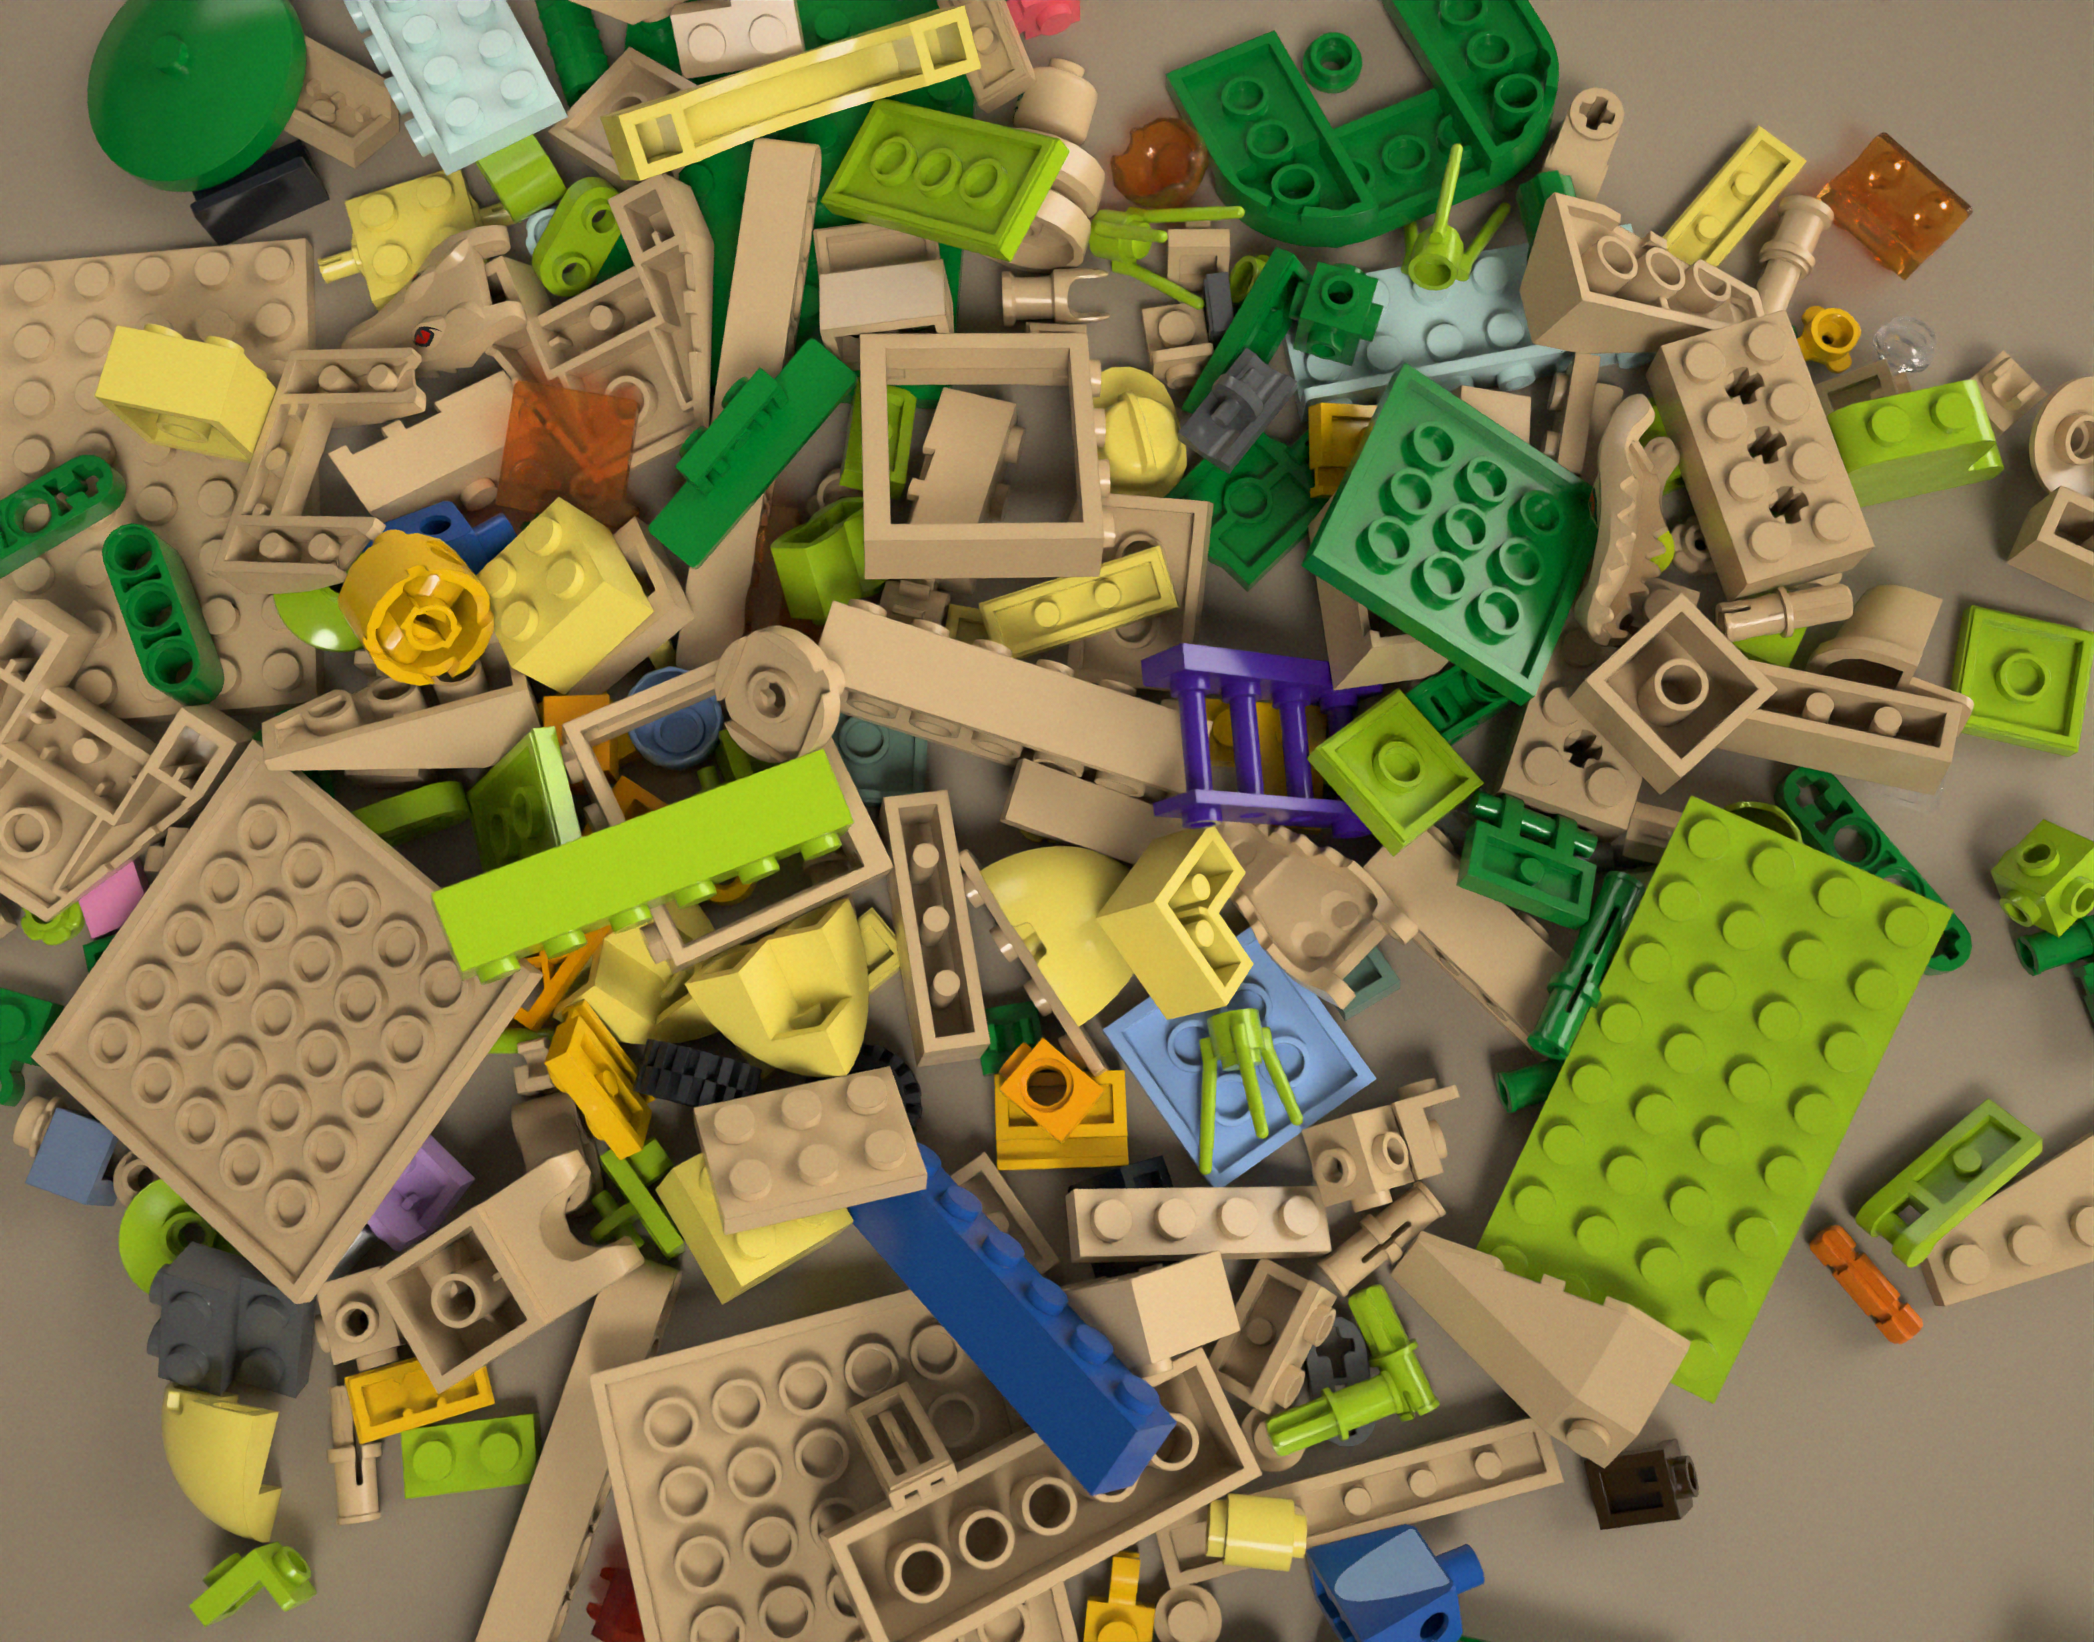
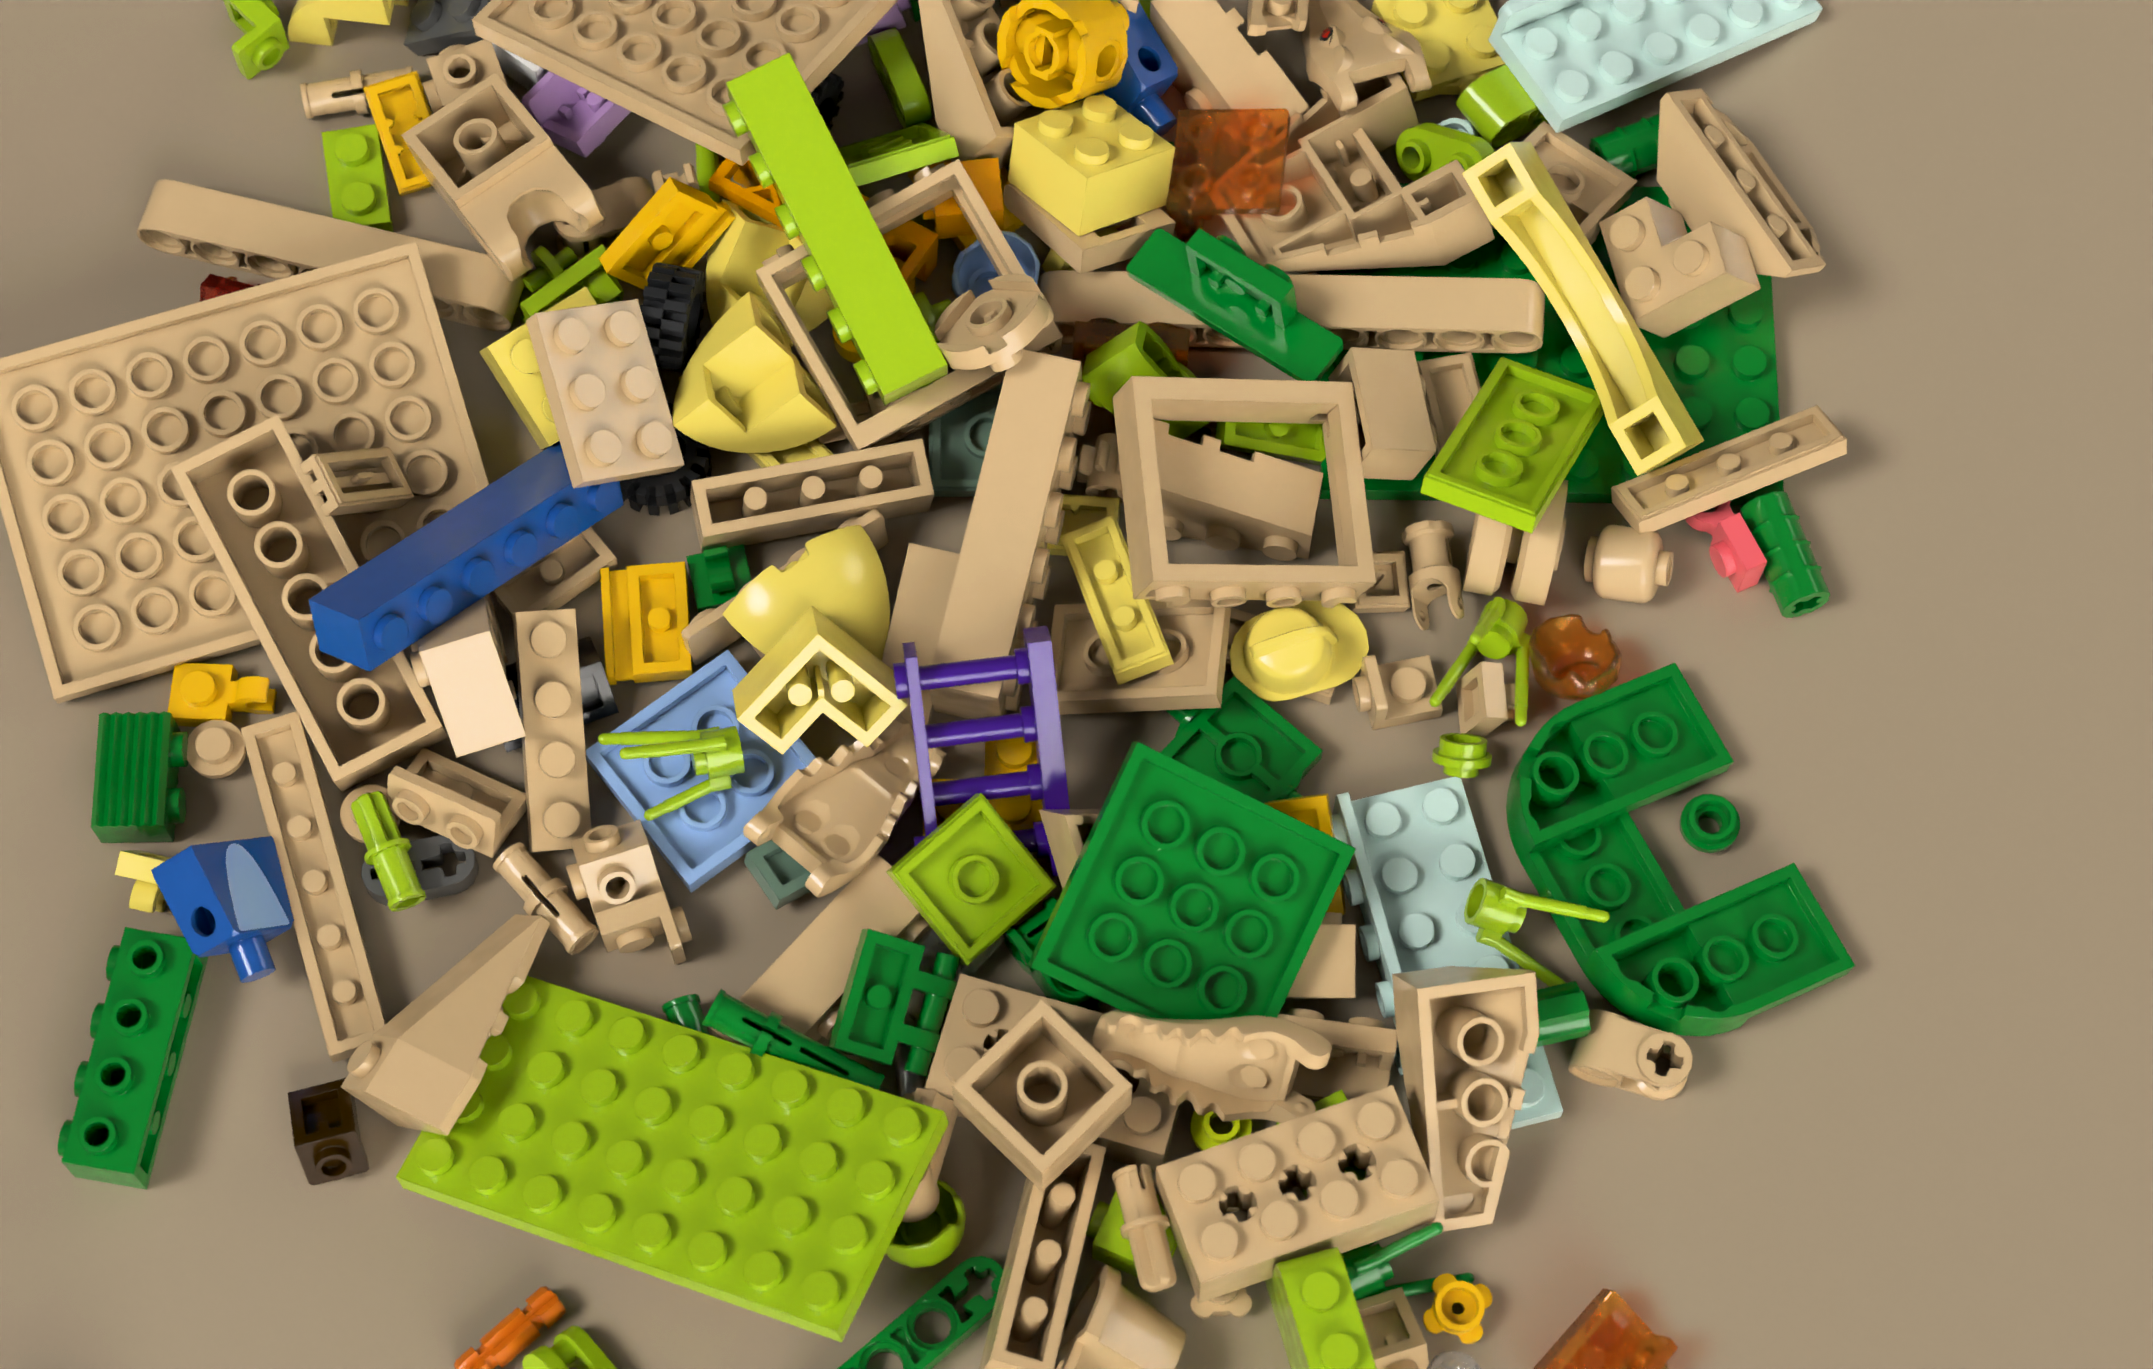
camera: 80 degrees right, 10 degrees down
(1079, 1098) = (666, 620): light orange brick -> none
(1218, 306) = (1427, 721): dark grey tile -> none
(1237, 411) = (1314, 724): dark grey hips -> none
(1255, 1532) = (286, 782): light yellow brick -> none
(1258, 323) = (1393, 743): green tile -> none
(1335, 312) = (1422, 809): green brick -> none
(1392, 1349) = (443, 912): lime axle -> none
(1734, 200) = (1591, 1211): light yellow tile -> none
(1790, 251) = (1536, 1262): tan pin -> none

